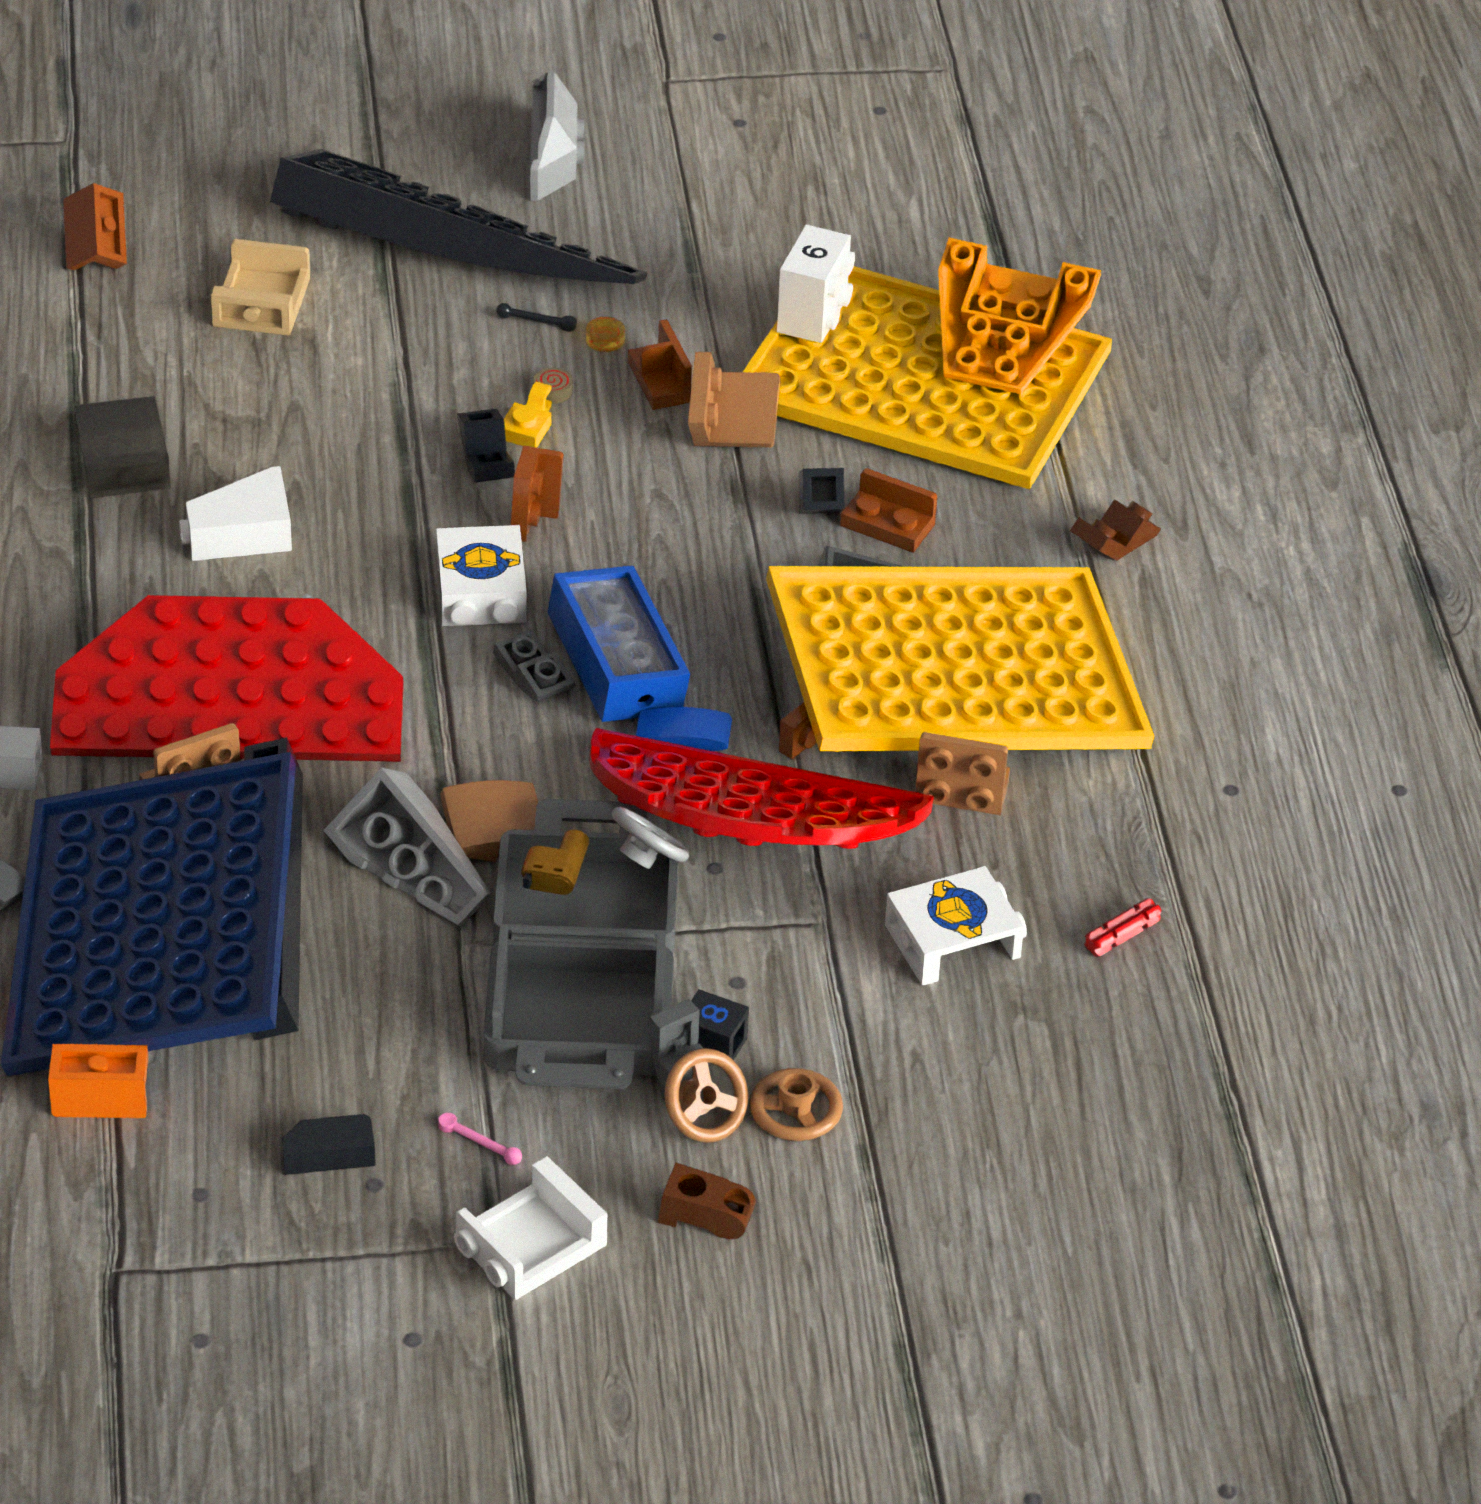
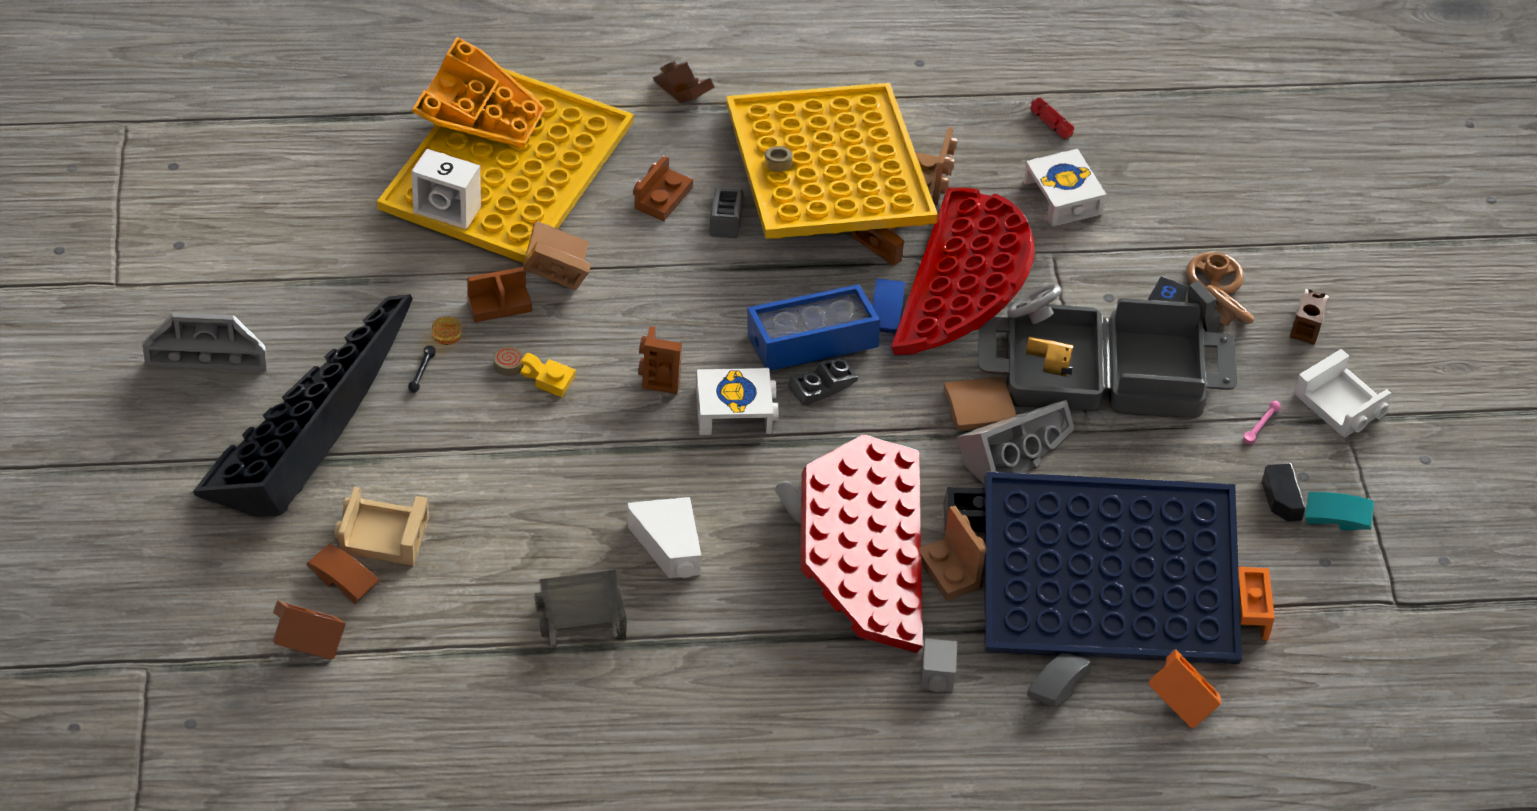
camera: 90 degrees left, 5 degrees up
(189, 261) = (343, 570): none -> dark orange slope
(283, 1203) = (1337, 508): none -> teal slope
(485, 445) = (576, 396): black slope -> none
(821, 490) = (652, 215): black brick -> none
(931, 591) = (778, 159): none -> dark tan tile

